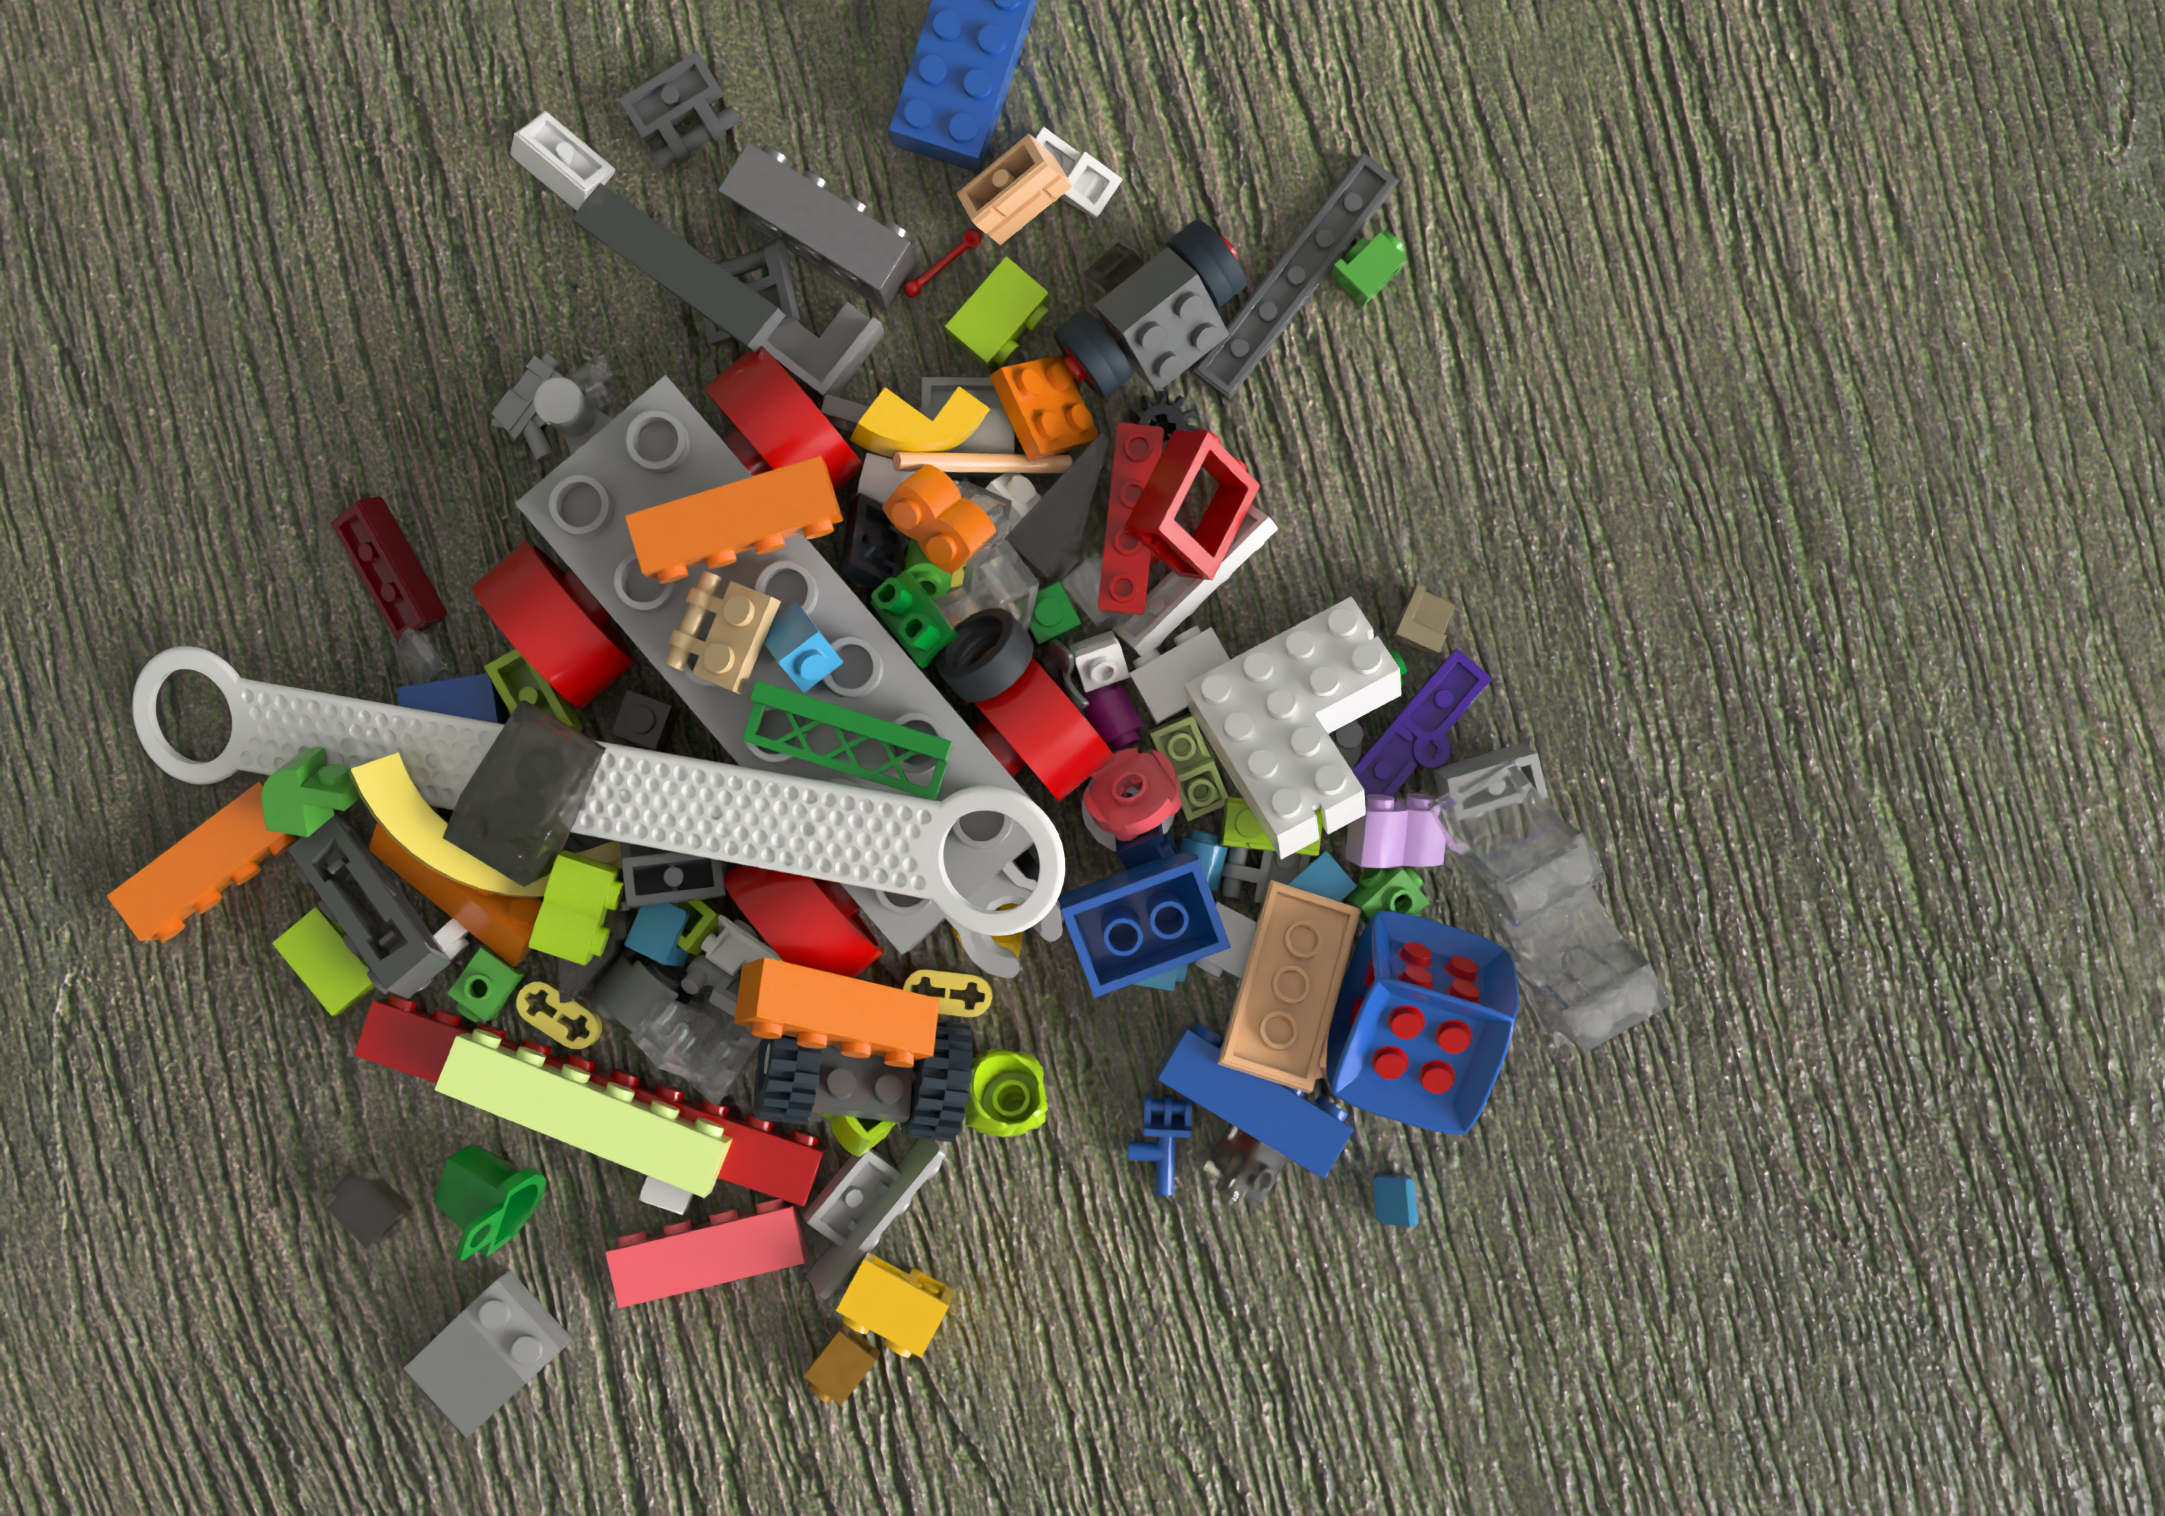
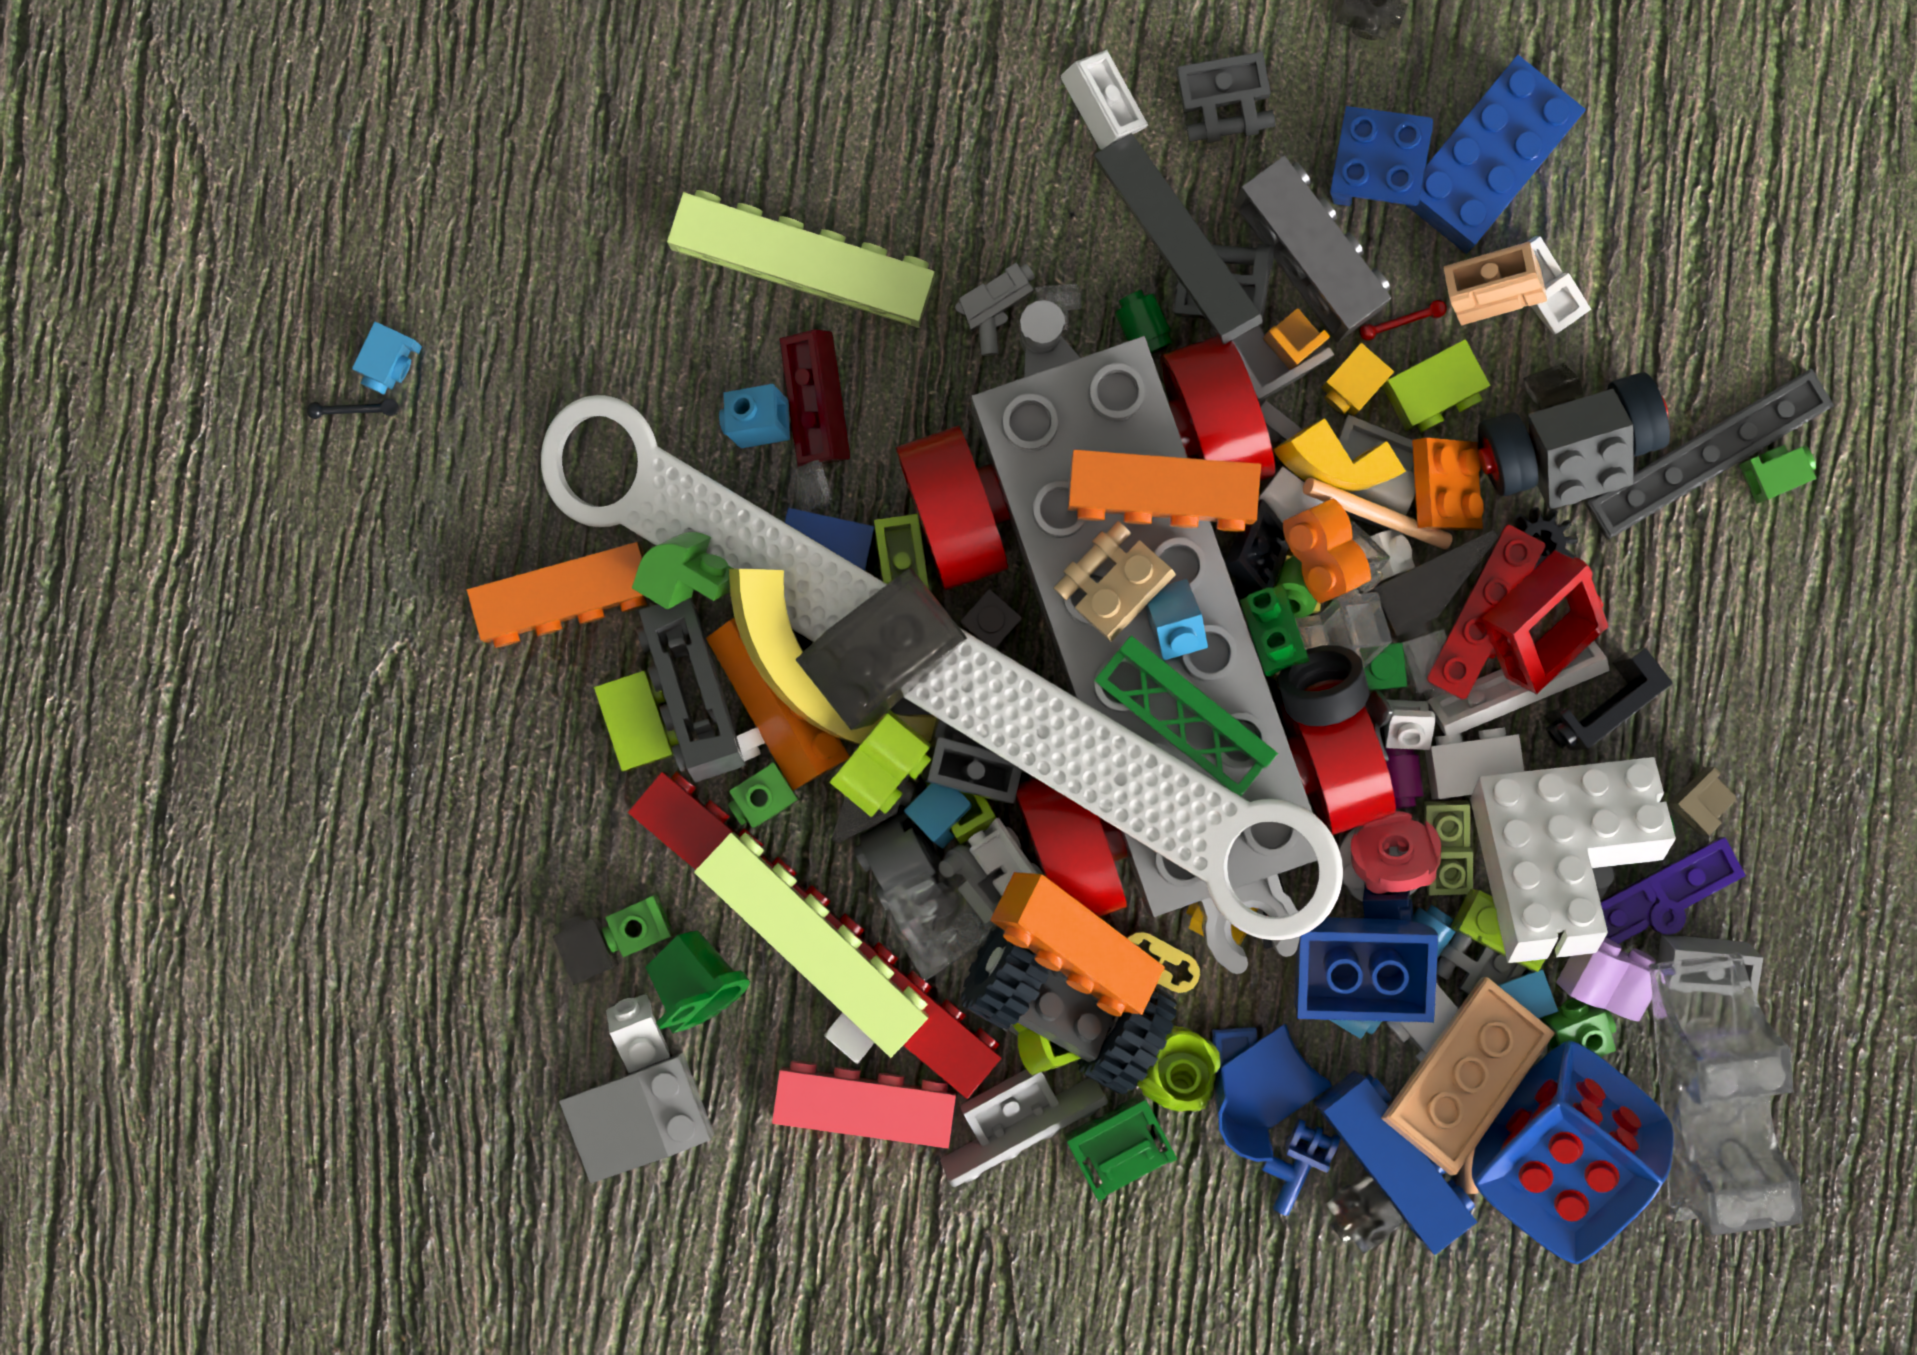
camera: 20 degrees right, 0 degrees up
(318, 435) = (801, 259): none -> yellowish green brick
(331, 609) = (755, 416): none -> dark azure brick
(427, 1156) = (653, 921): none -> bright green brick
(449, 1277) = (636, 1033): none -> white bracket
(552, 1024) = (804, 852): light yellow beam -> none
(683, 365) = (1143, 317): none -> green brick
(838, 322) = (1295, 339): none -> light orange panel
(840, 1365) = (942, 1250): pearl gold brick -> none
(850, 108) = (1381, 157): none -> blue bracket
(895, 1305) = (1016, 1215): yellow brick -> none
(916, 340) = (1356, 381): none -> yellow brick
(974, 1194) = (1119, 1146): none -> green piece
(1057, 1050) = (1232, 1042): none -> blue tile
(1096, 1083) = (1261, 1091): none -> blue piece
(1314, 522) = (1644, 682): none -> black panel
(1395, 1200) = (1482, 1298): dark azure slope -> none

